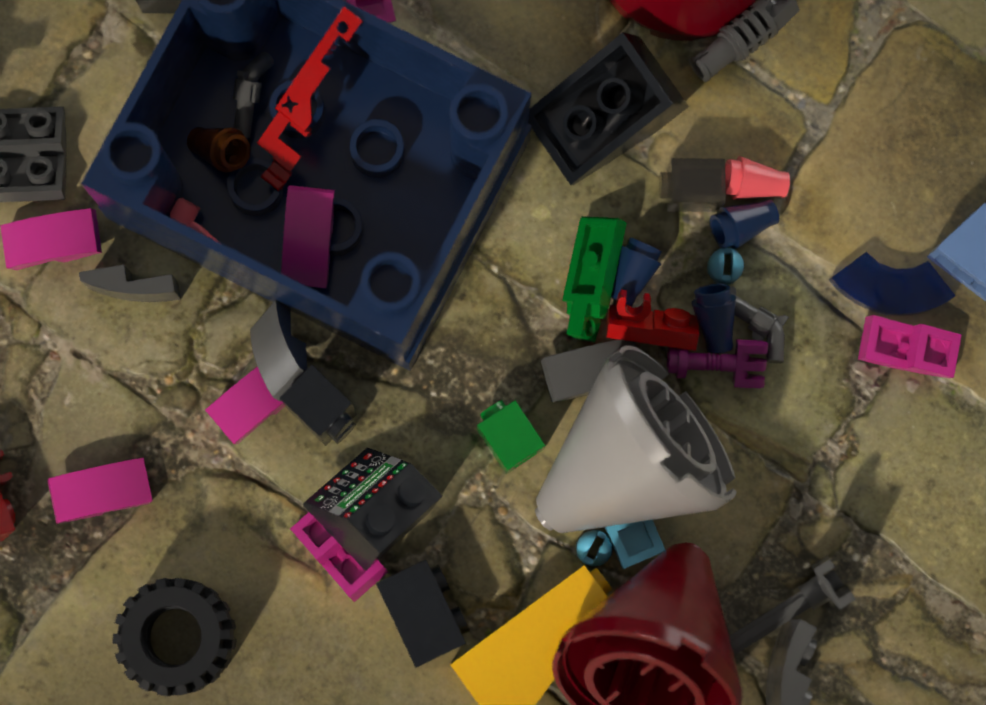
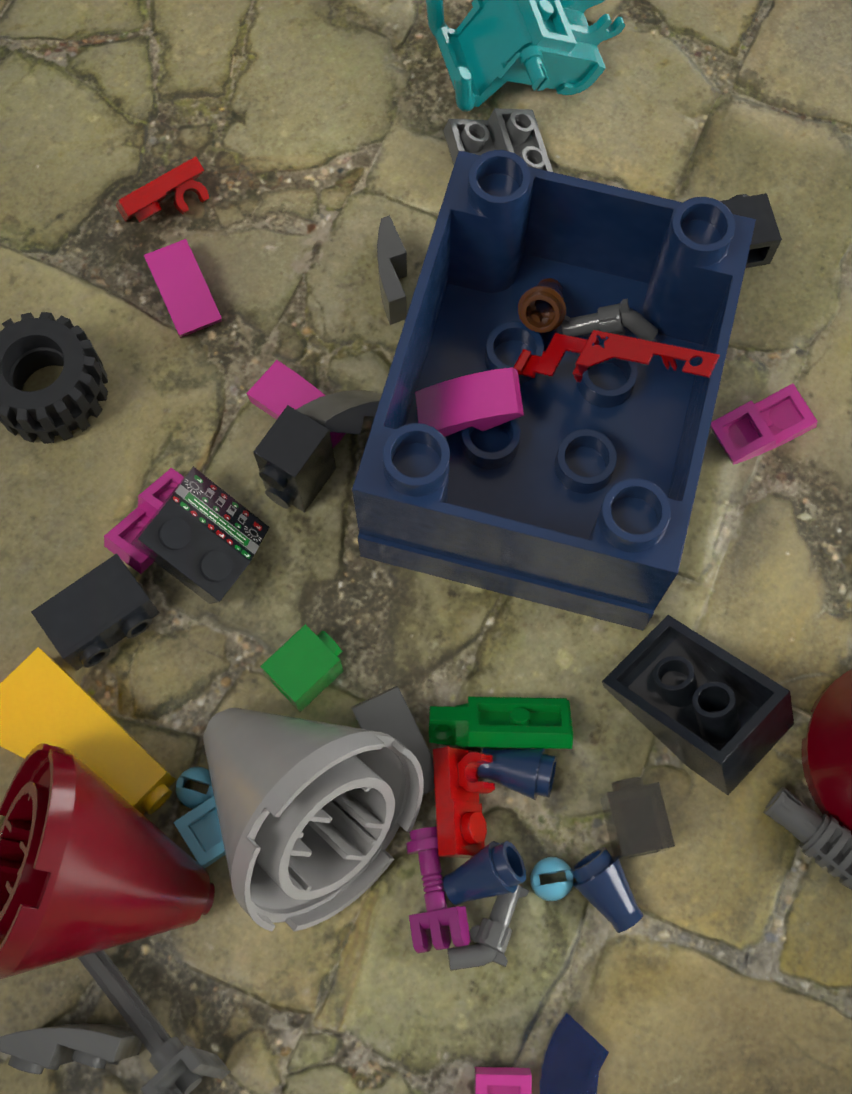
camera: 85 degrees right, 10 degrees down
(51, 238) = (419, 191): dark pink slope -> none
(185, 213) = (464, 290): coral hand -> none
(754, 180) = (661, 892): coral cone -> none

